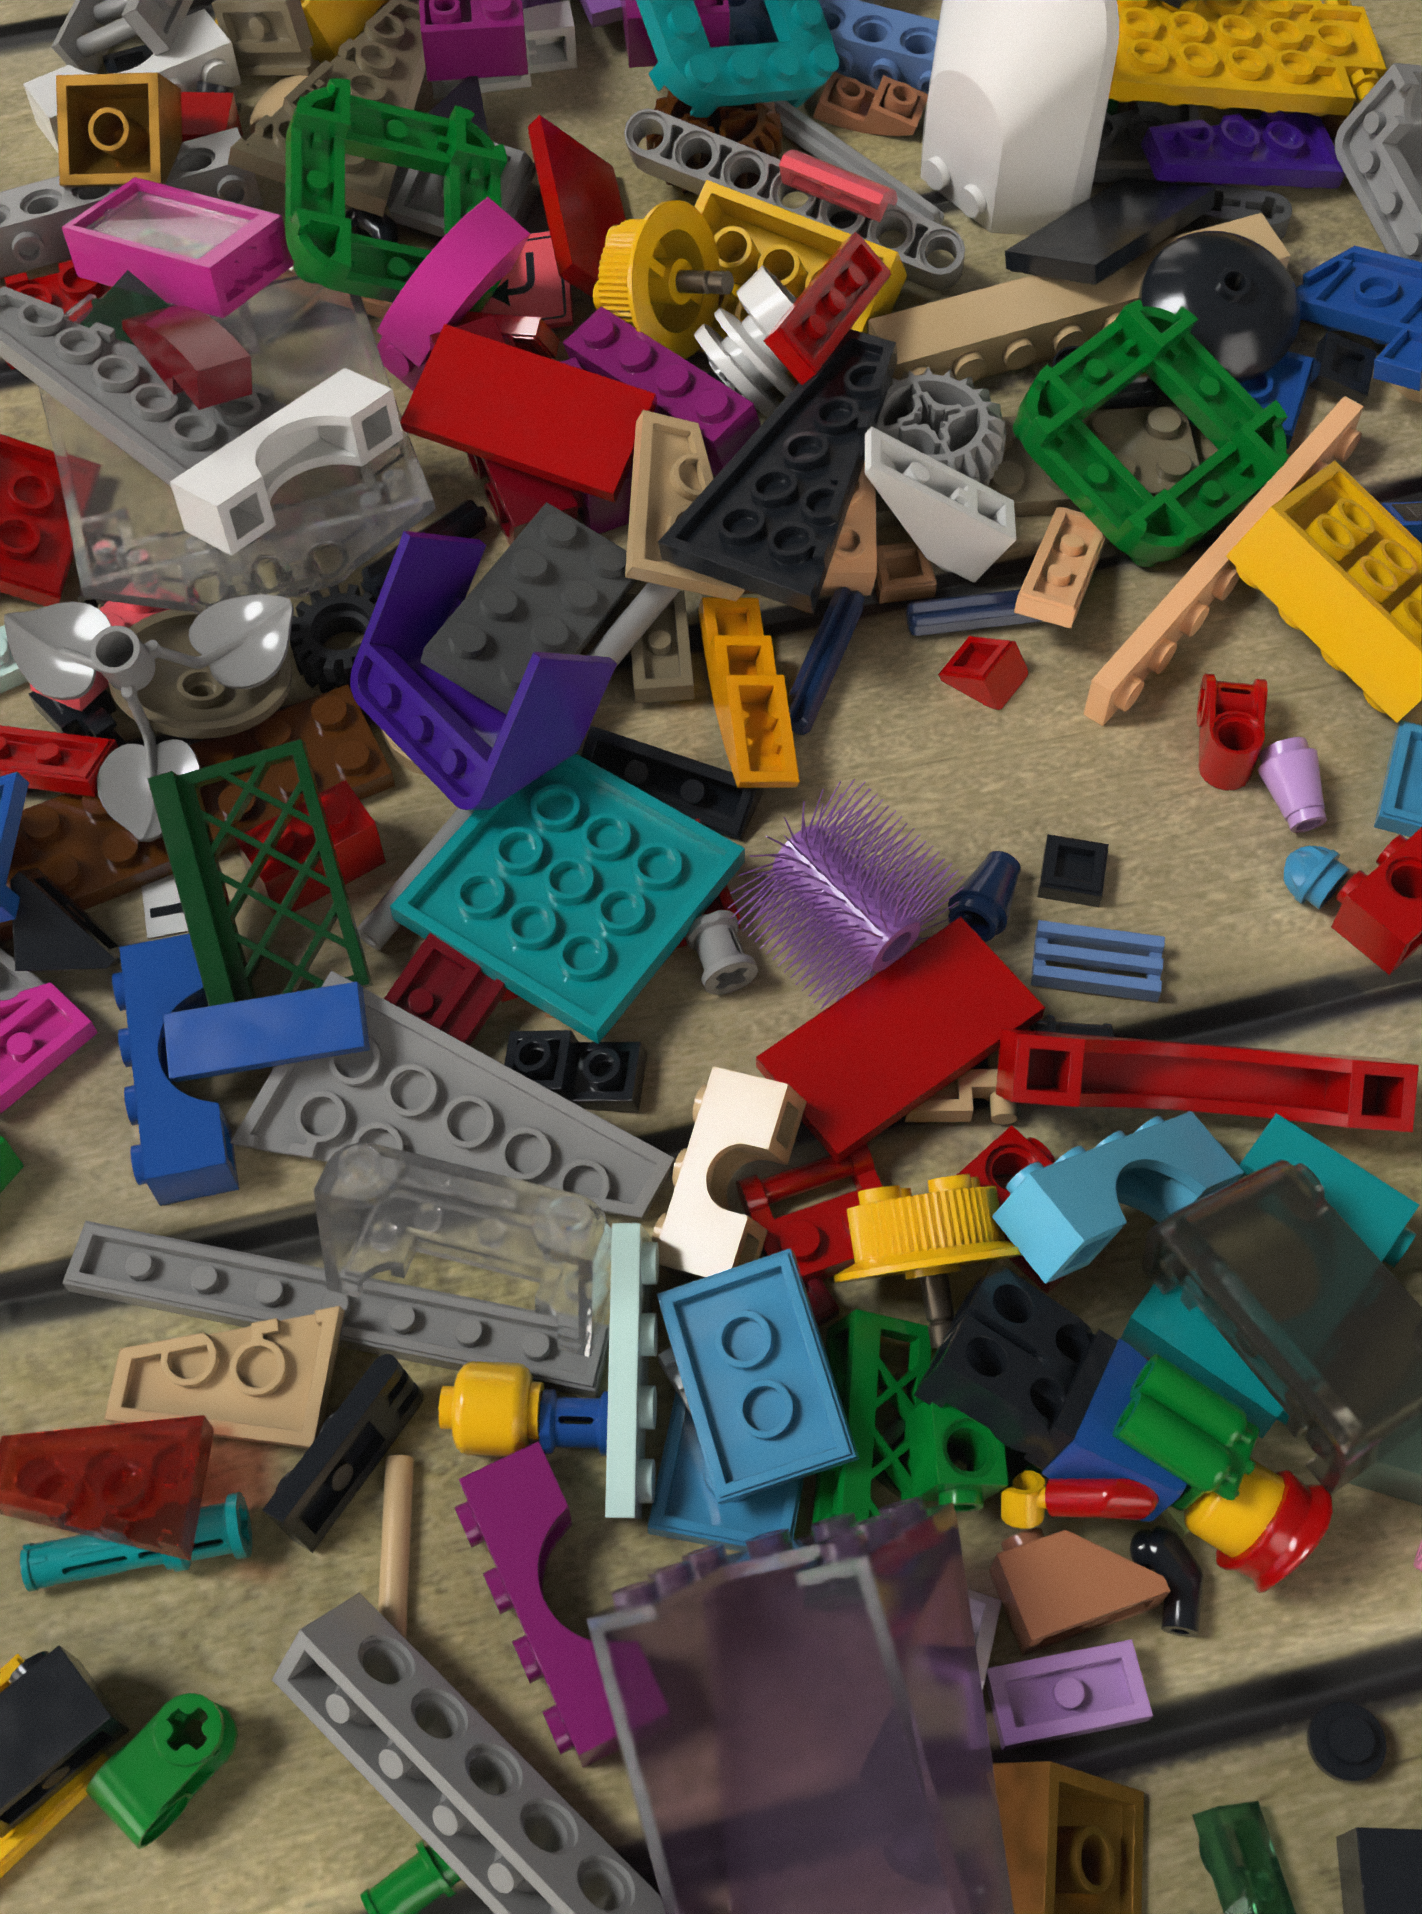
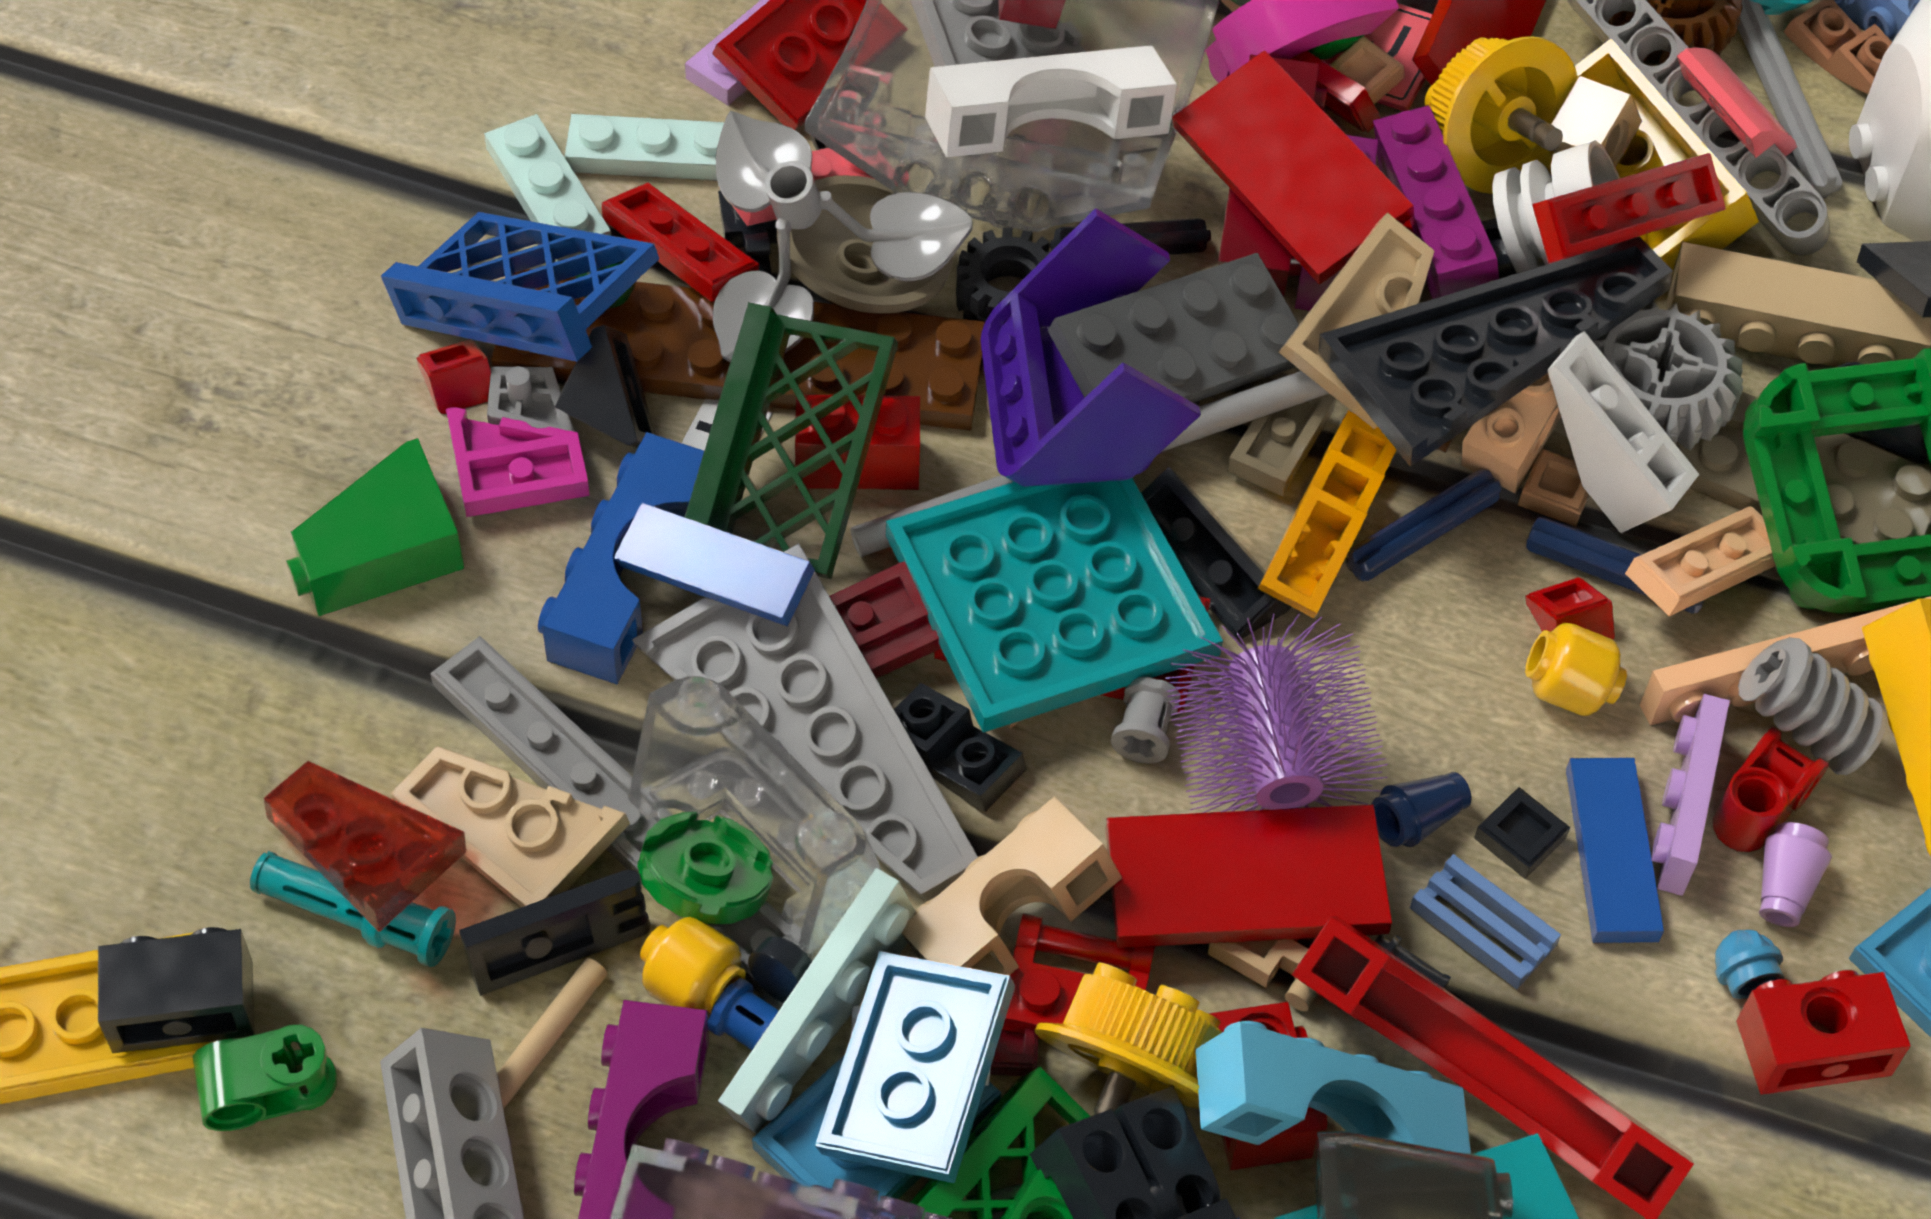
camera: 30 degrees right, 5 degrees down
(444, 1311) = (705, 868): none -> green tile
(522, 299) = (1370, 68): none -> light nougat tile
(576, 1361) = (778, 966): none -> black tile
(741, 248) = (1597, 114): none -> brick
(1025, 712) = (1575, 669): none -> yellow head
(1151, 843) = (1614, 850): none -> blue tile
(1181, 764) = (1689, 794): none -> lavender plate
(1228, 637) = (1814, 704): none -> light grey piece

